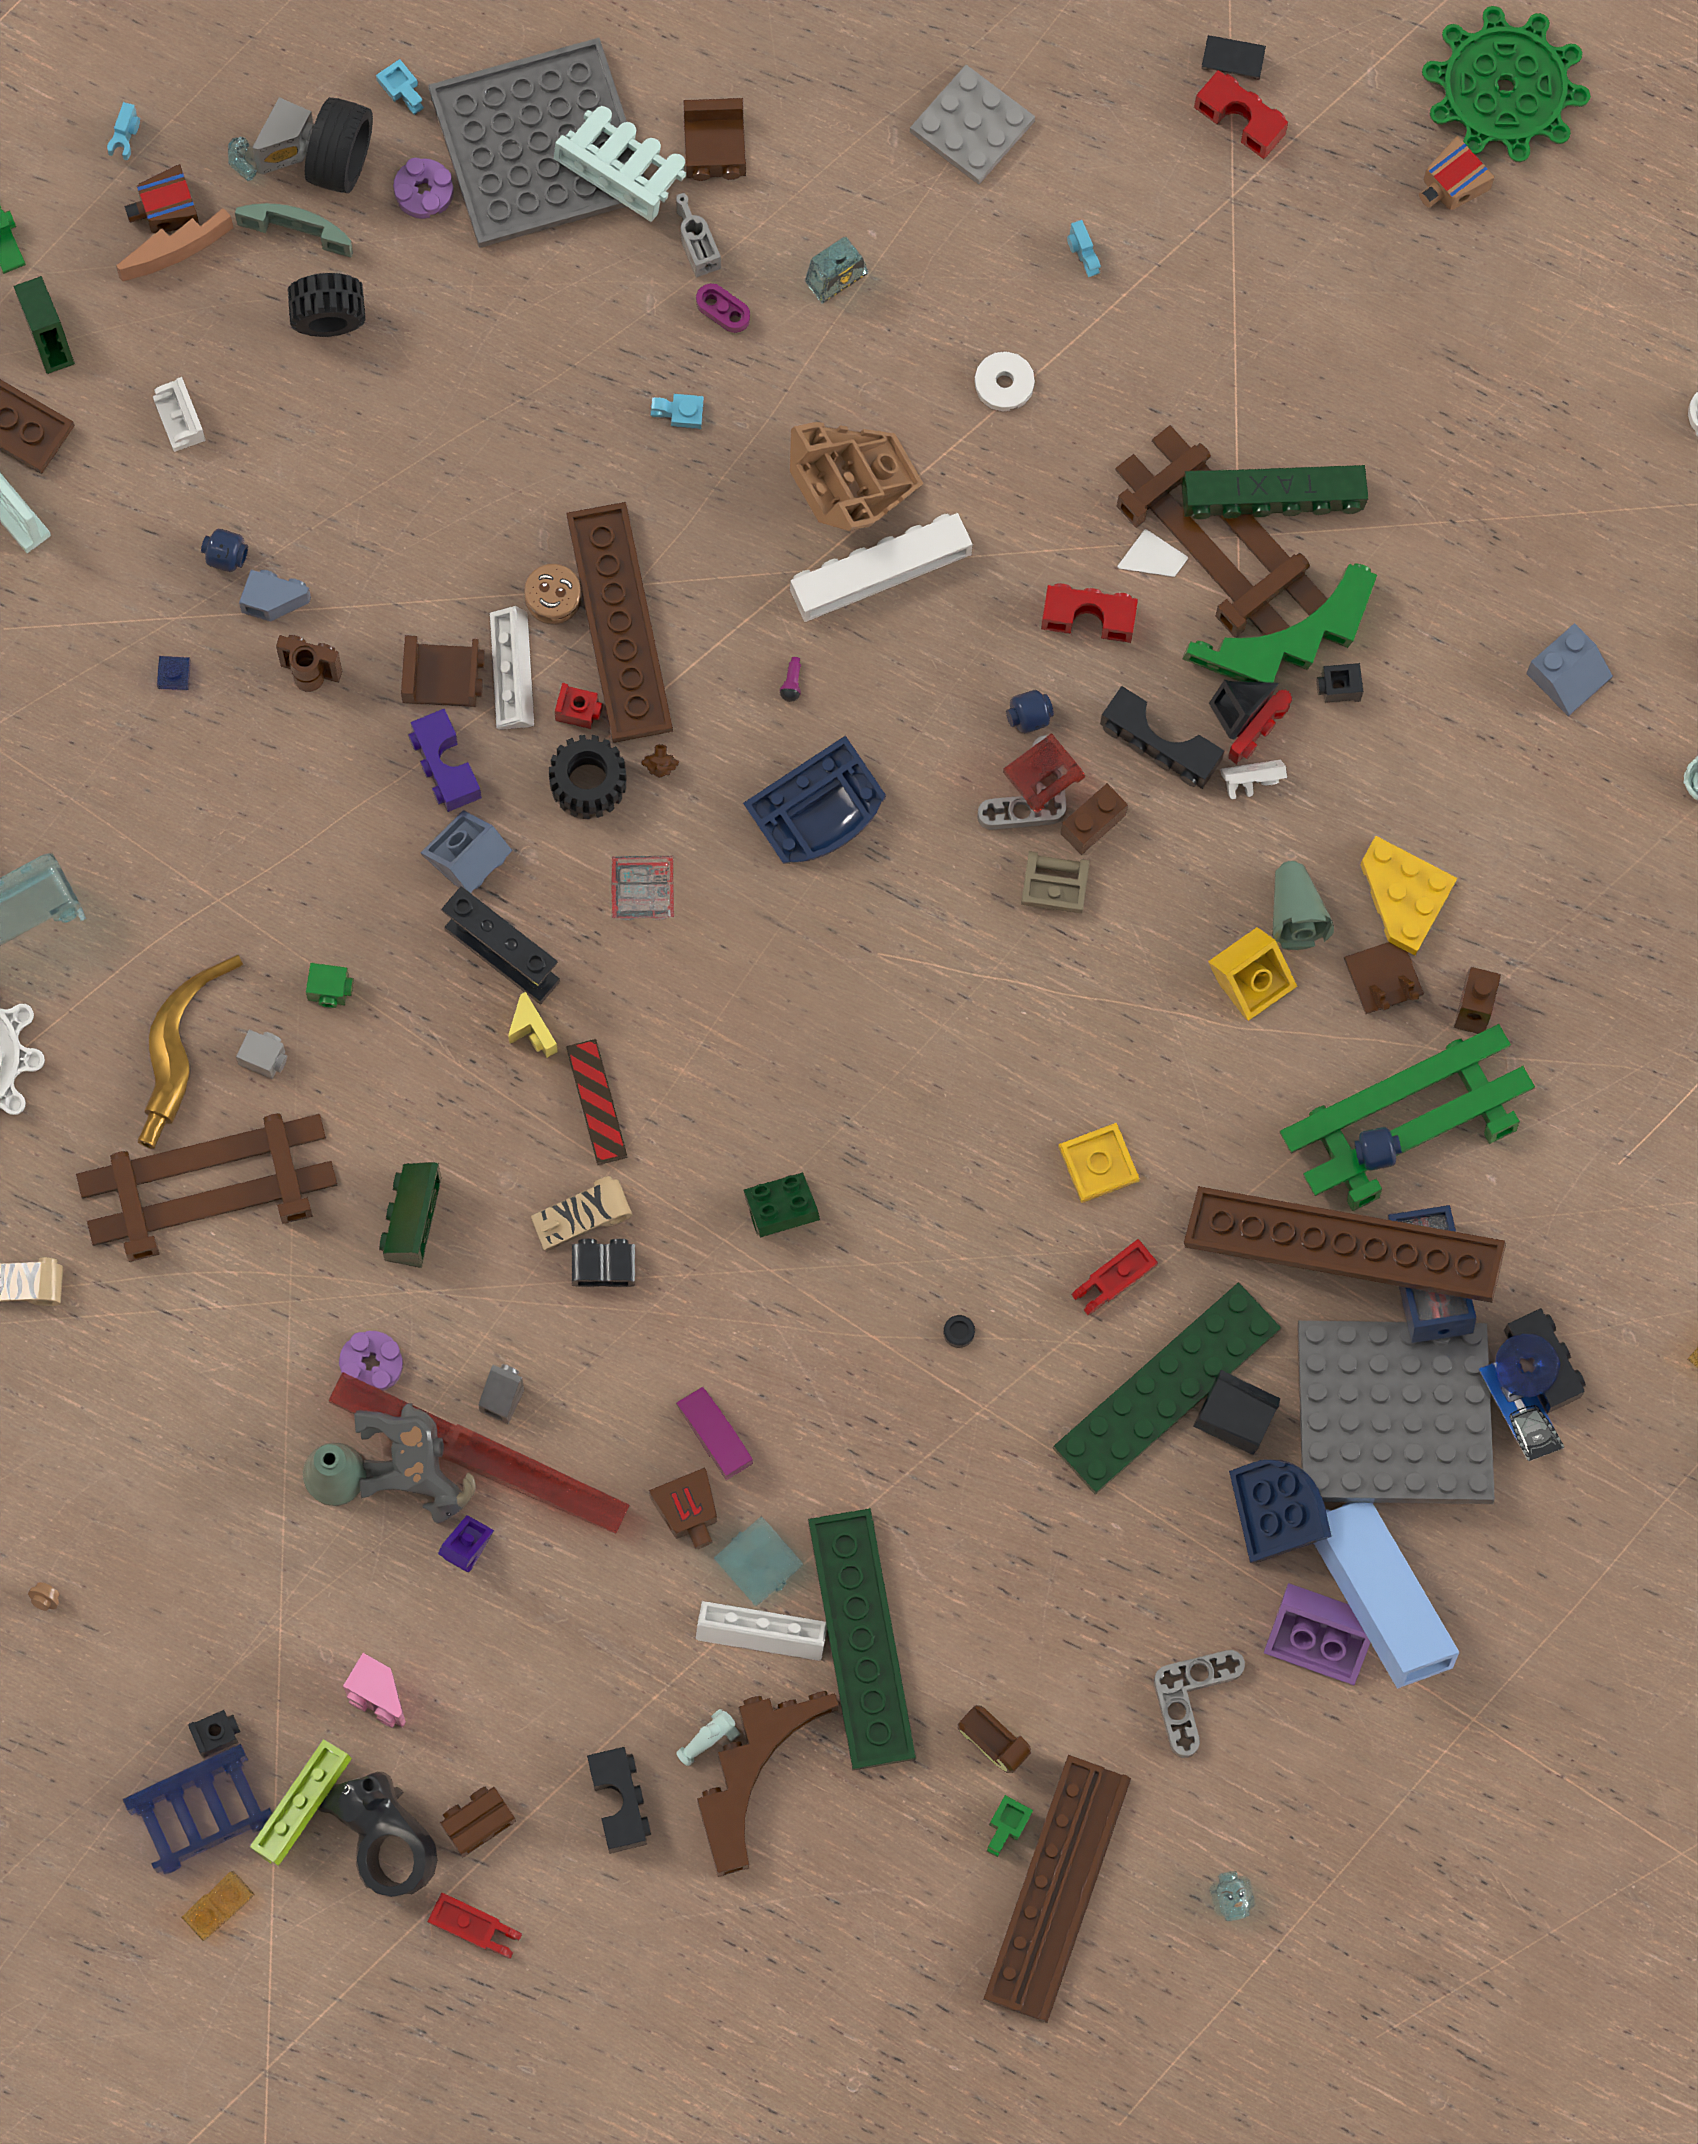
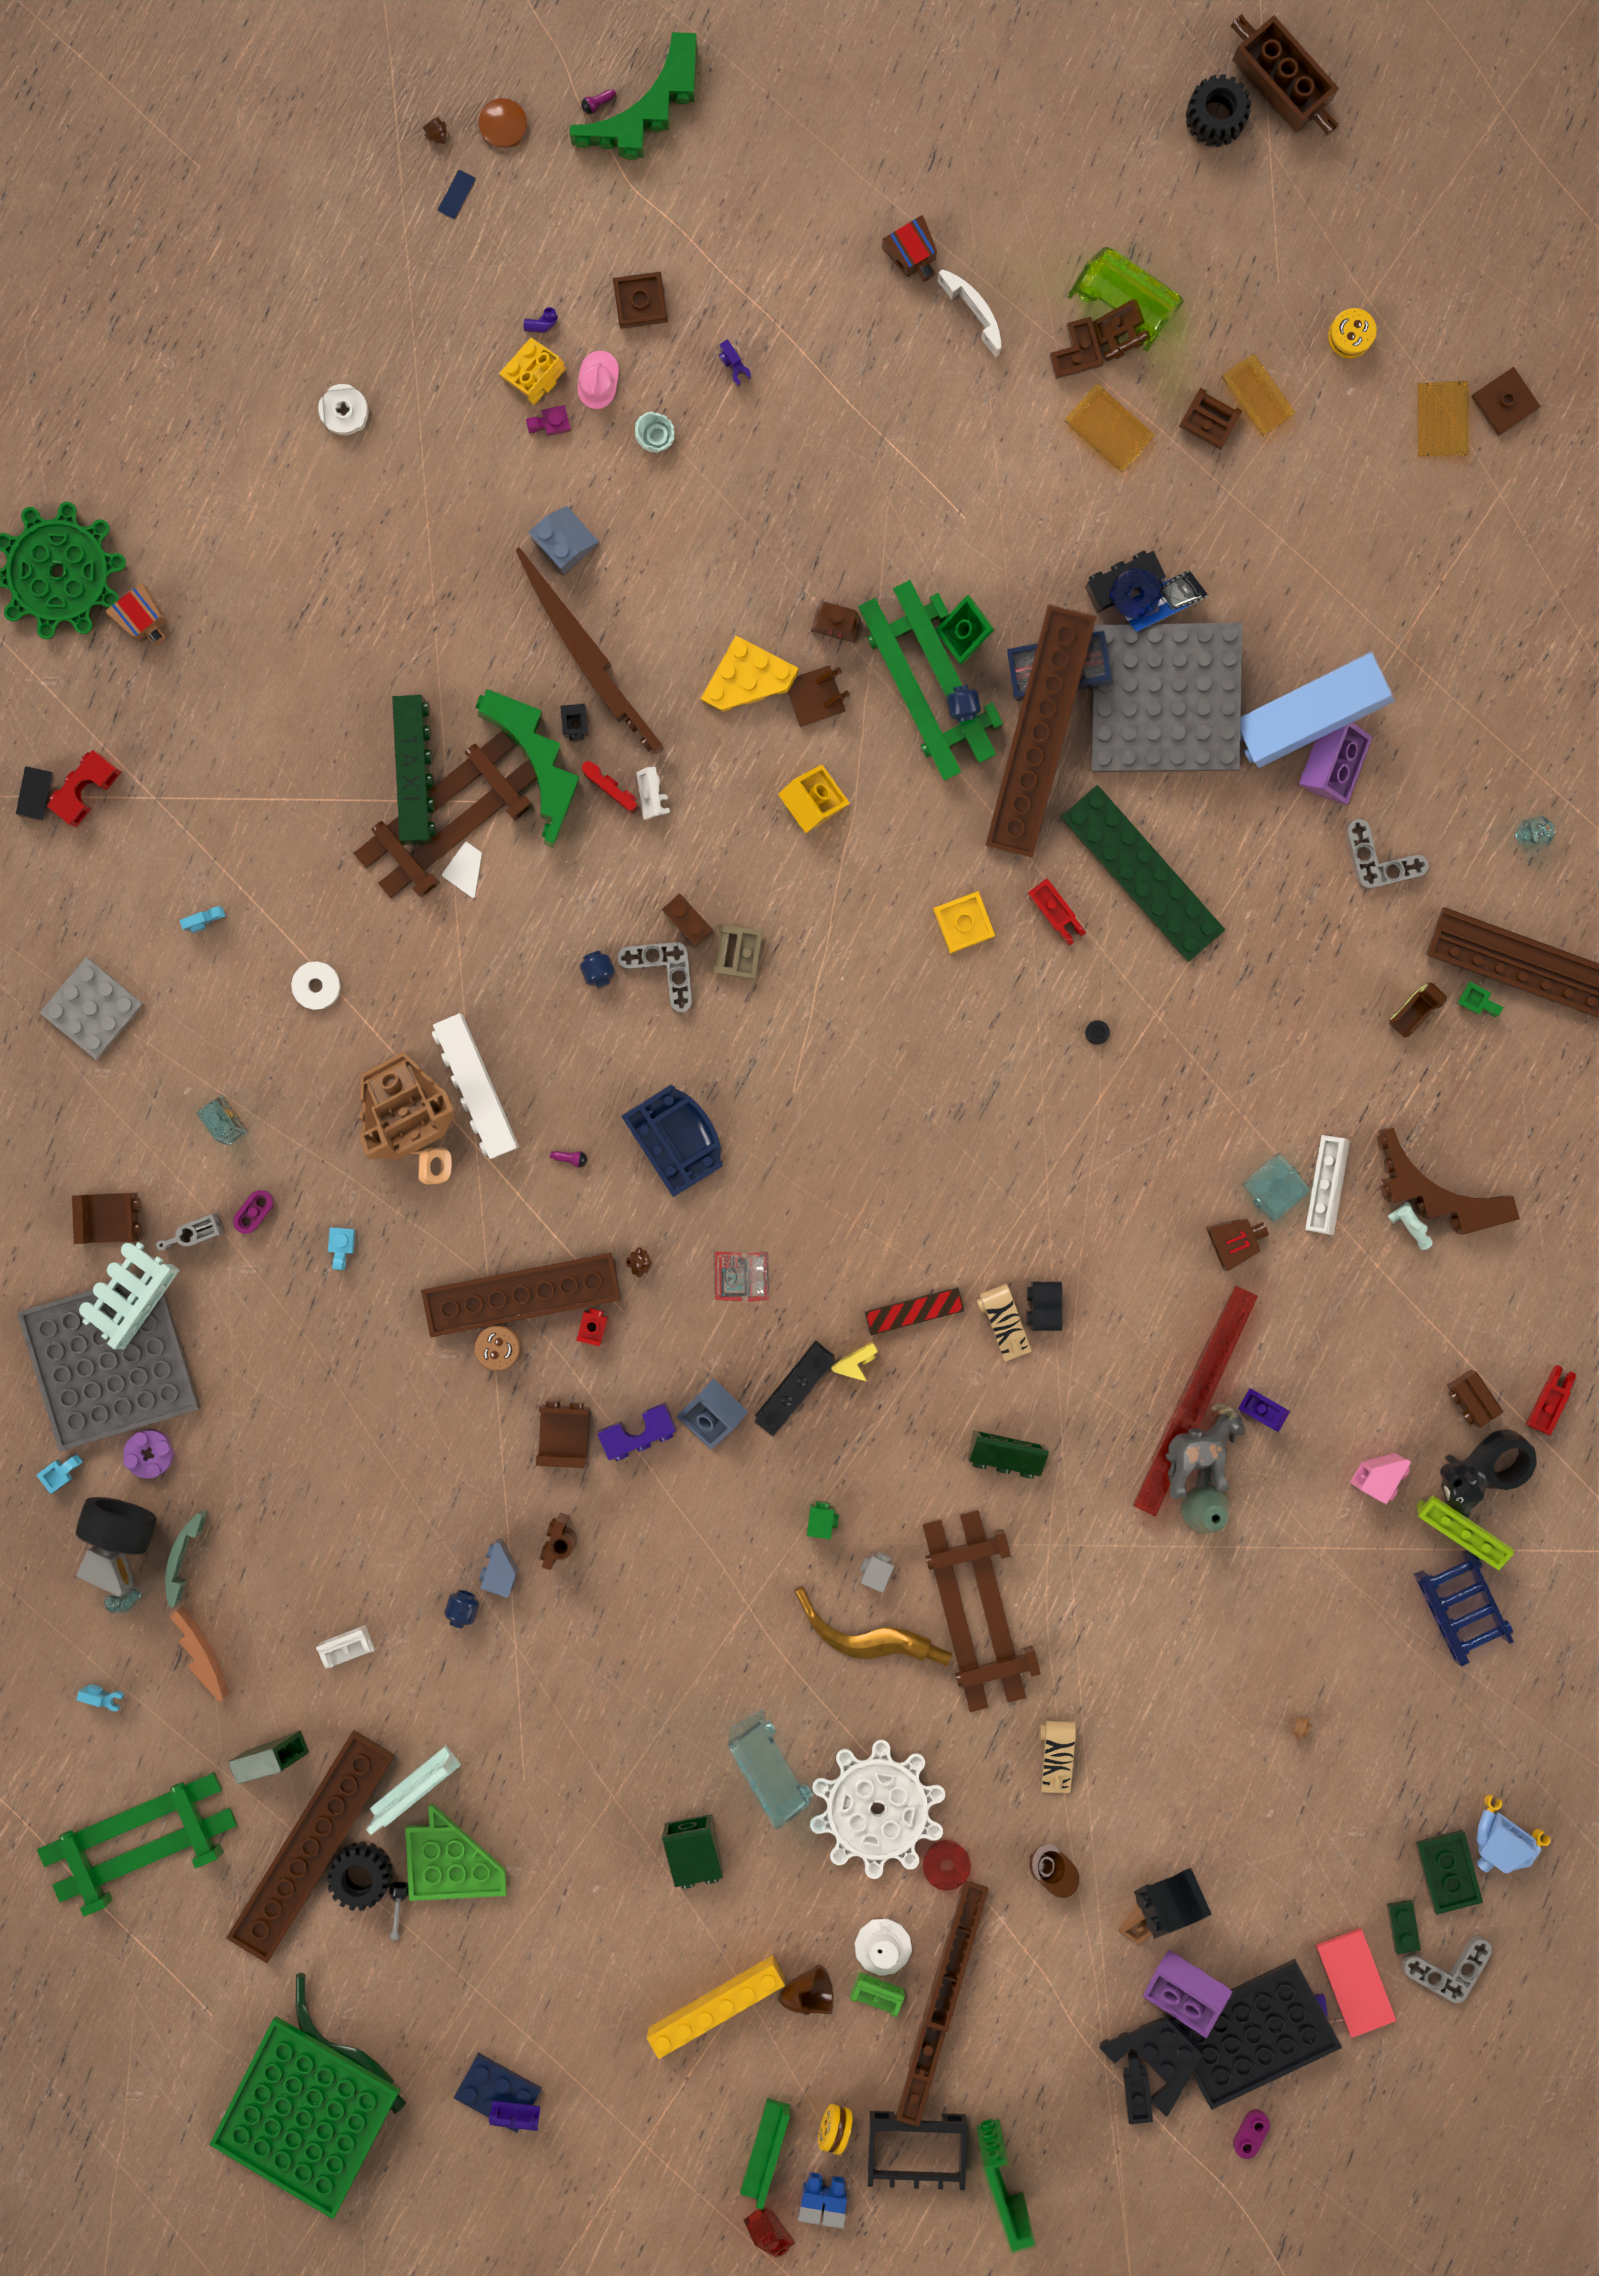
camera: 85 degrees left, 15 degrees up
(163, 201) = (162, 1663): torso -> none
(173, 673) = (562, 1646): clear blue plate -> none
(210, 1744) = (1399, 1590): black brick -> none
(218, 1905) = (1534, 1591): clear yellow slope -> none
(326, 304) = (254, 1532): black tyre -> none
(386, 1352) = (1113, 1471): medium lavender plate -> none
(501, 1393) = (1149, 1383): flat silver slope -> none
(511, 668) = (558, 1379): white slope -> none
(587, 753) = (643, 1339): black tyre -> none
(613, 1771) = (1437, 1297): black arch -> none
(715, 1433) = (1178, 1220): magenta slope -> none
(781, 1205) = (1001, 1168): dark green plate -> none
(790, 503) = (426, 1157): none -> light nougat piece
(861, 1639) = (1337, 1109): dark green plate -> none
(1036, 766) = (645, 965): clear red plate -> none
(1065, 604) = (514, 899): red arch -> none
(1191, 759) = (603, 891): black arch -> none
(1237, 1412) = (1166, 819): black slope -> none
(1238, 704) = (593, 803): black slope -> none
(1278, 1508) = (1244, 789): dark blue plate -> none
(1298, 909) = (761, 761): sand green cone -> none
(1425, 697) = (587, 656): none -> reddish brown slope
(1472, 1151) = (964, 629): none -> green slope

